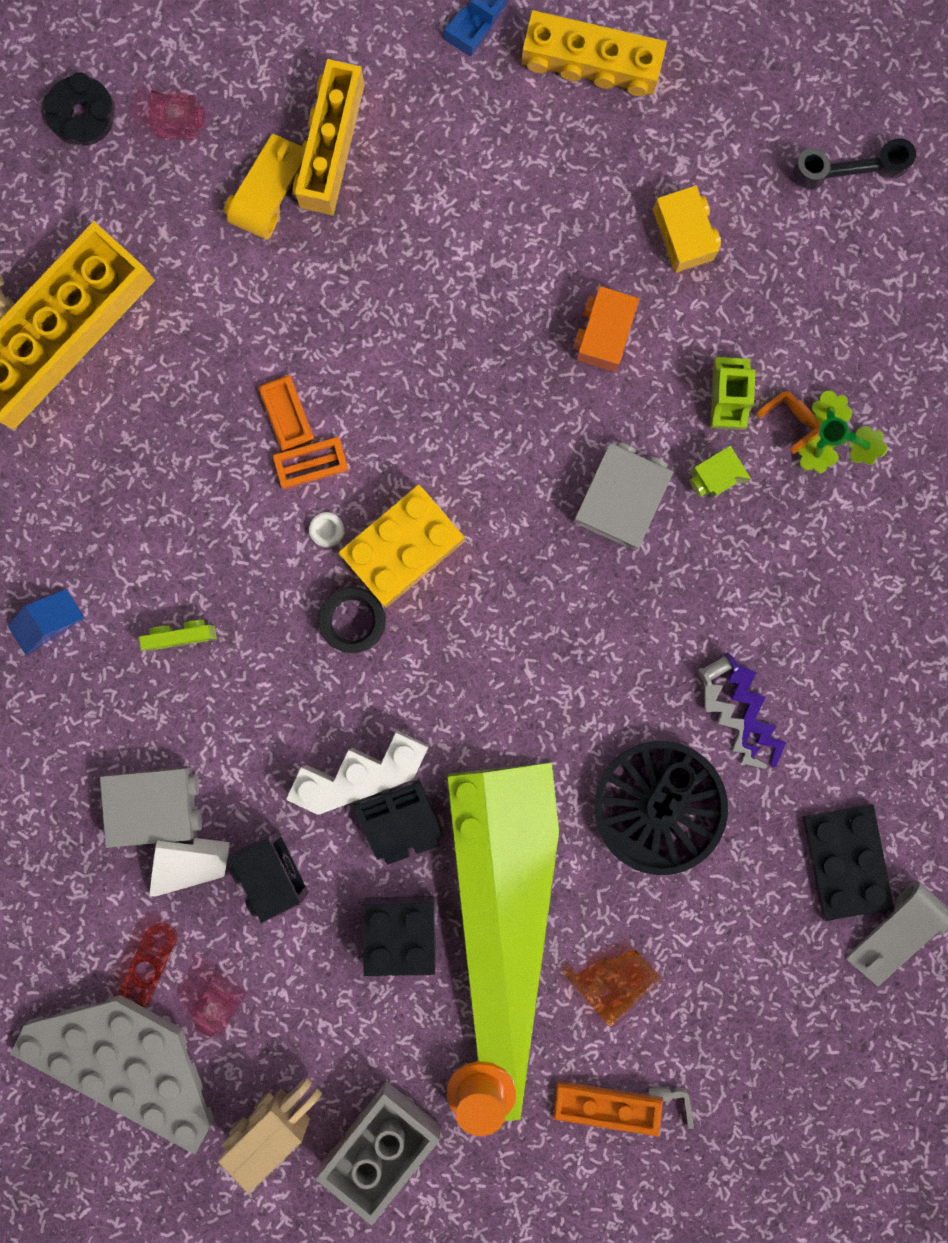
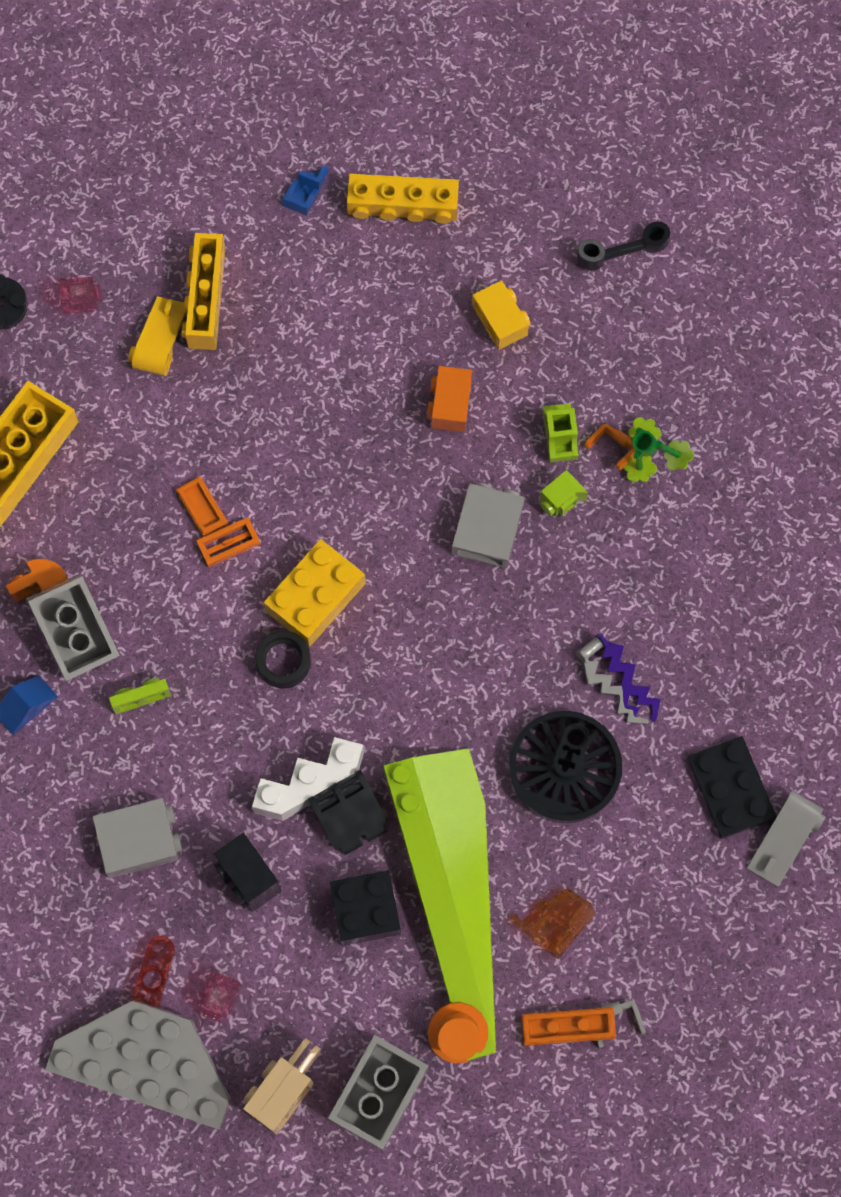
camera: 10 degrees left, 15 degrees down
(91, 476) = (42, 576): none -> orange brick
(105, 544) = (72, 627): none -> light grey brick
(187, 865) = (175, 881): white slope -> none
(326, 529) = (249, 592): white tile -> none

